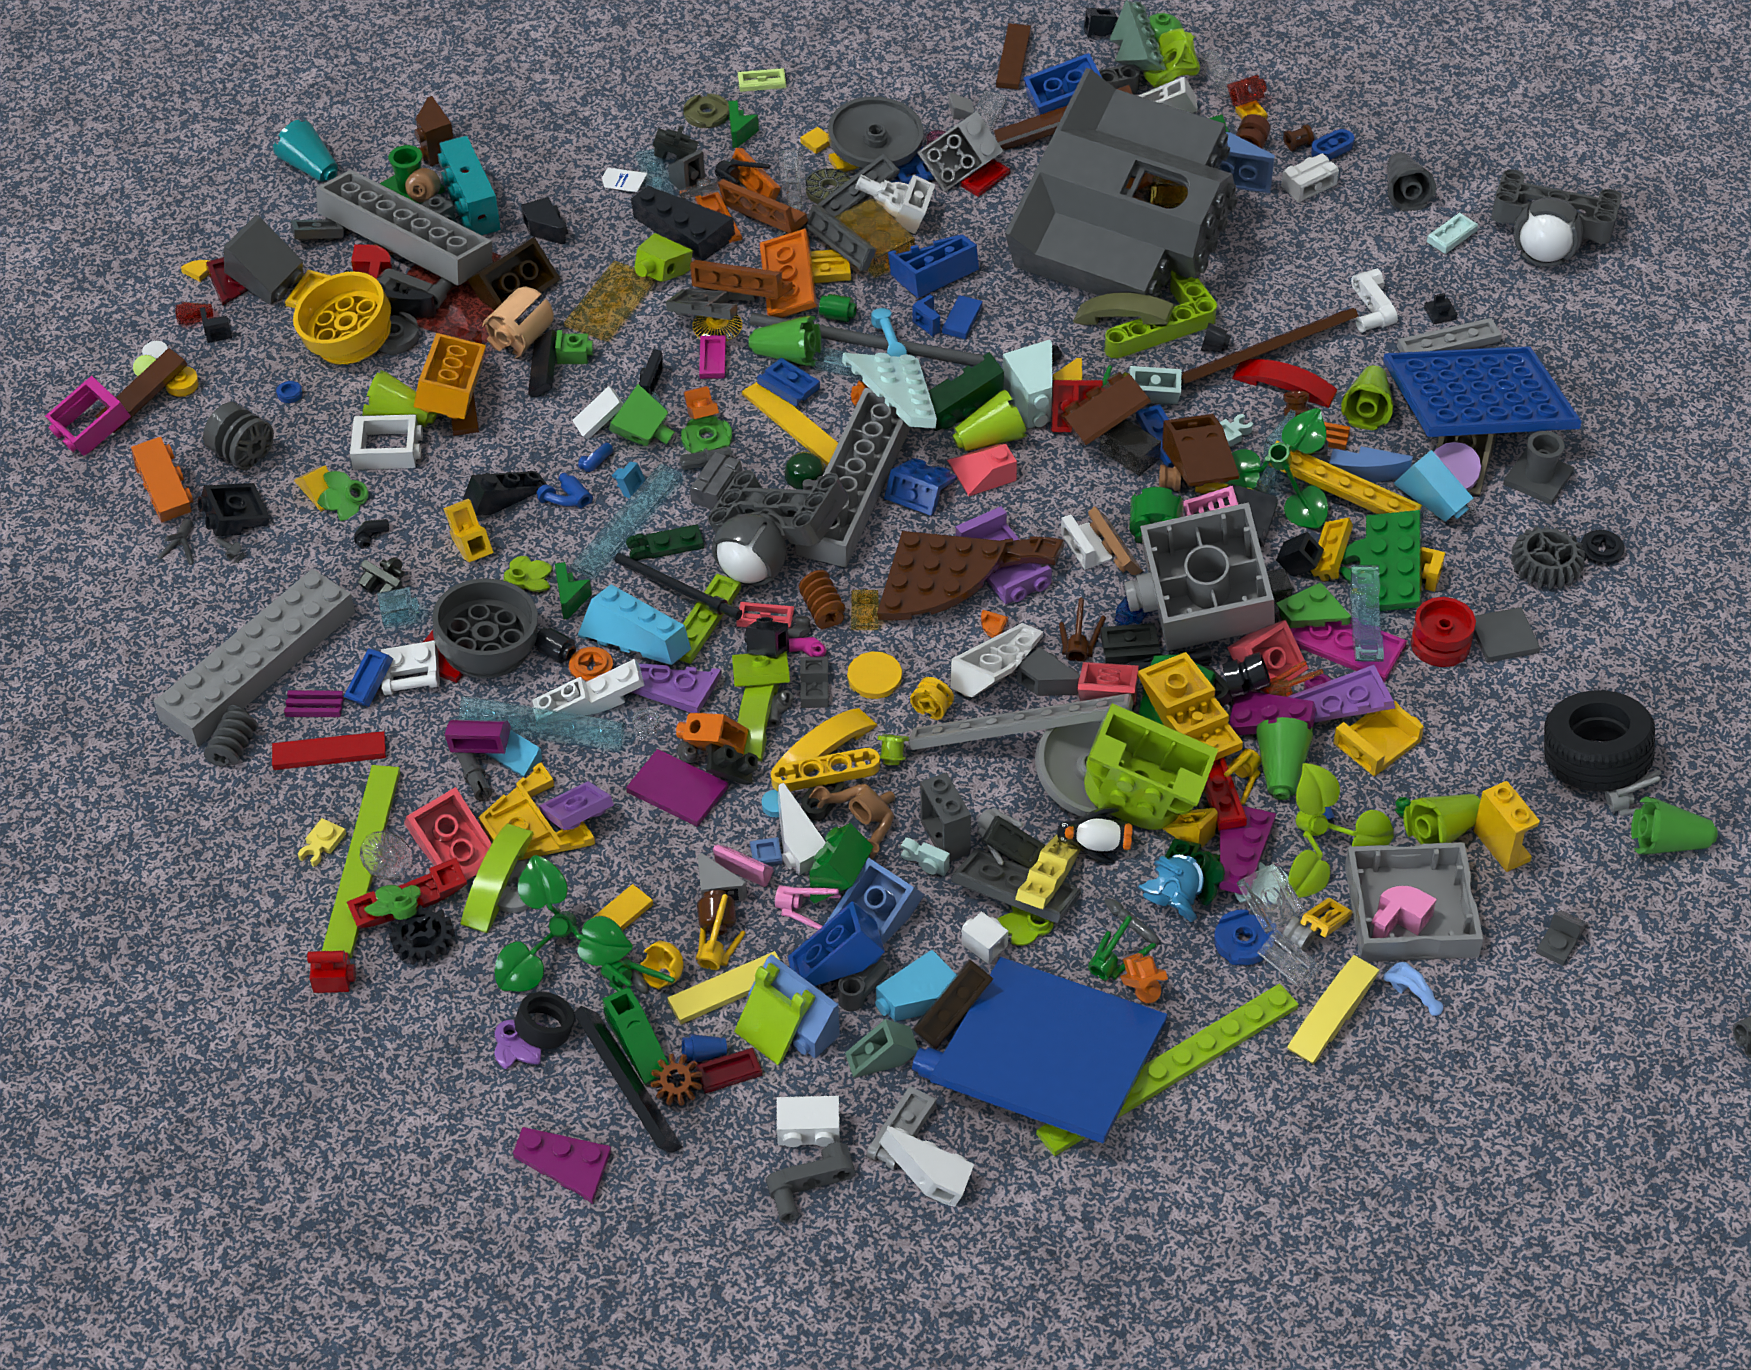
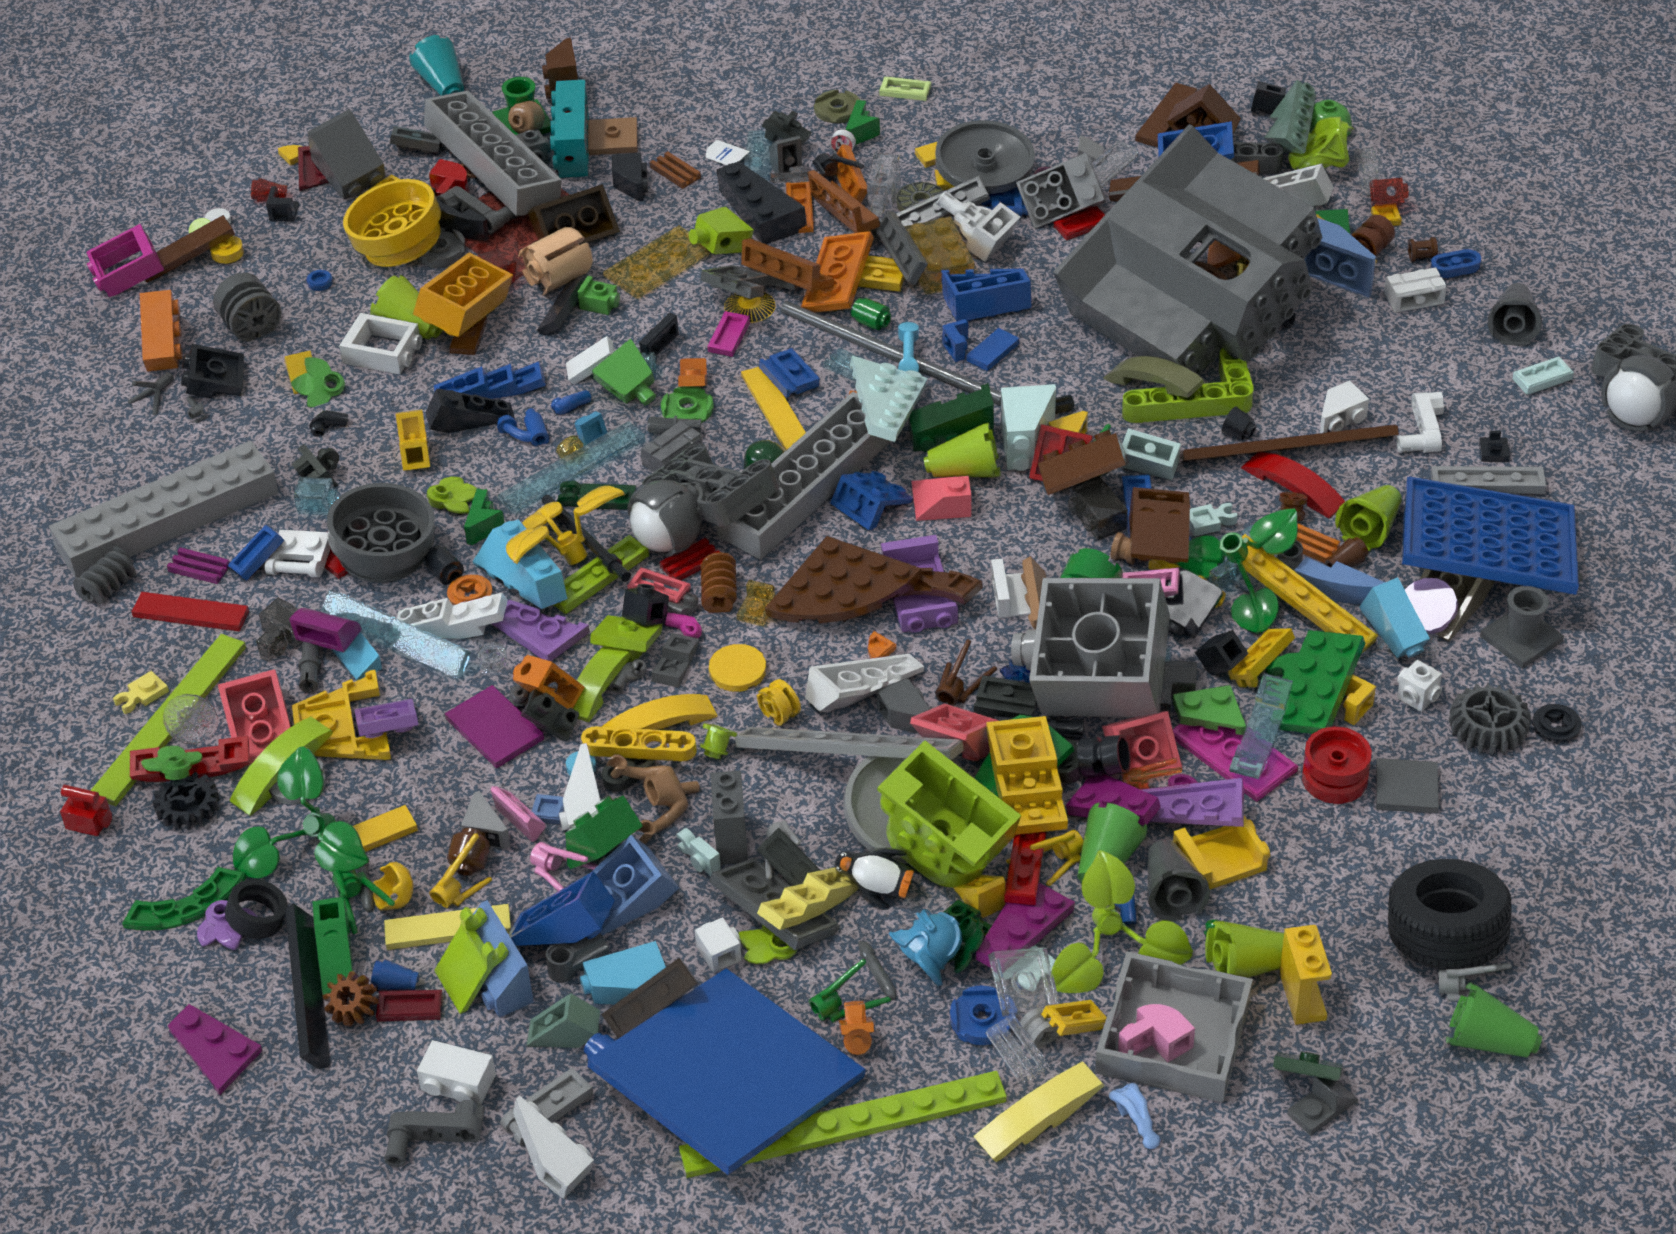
camera: 20 degrees right, 5 degrees down
(428, 740) = (276, 629): none -> clear smoke brick
(473, 1038) = (172, 913): none -> green tile
(511, 183) = (612, 136): none -> medium nougat plate
(514, 456) = (497, 383): none -> blue slope
(585, 205) = (676, 166): none -> dark orange tile
(618, 501) = (569, 445): none -> clear yellow tile
(639, 603) = (568, 544): none -> yellow plant
(729, 143) = (842, 137): none -> white tile
(760, 593) = (689, 559): none -> red tile
(791, 340) = (808, 334): bright green cone -> none
(1049, 47) = (1202, 109): none -> reddish brown brick
(1298, 301) = (1342, 407): none -> white slope
(1356, 770) = (1174, 883): none -> dark grey cone
(1364, 435) = (1349, 553): none -> reddish brown cone
(1478, 542) = (1419, 685): none -> white brick
(1541, 905) = (1308, 1064): none -> dark green plate

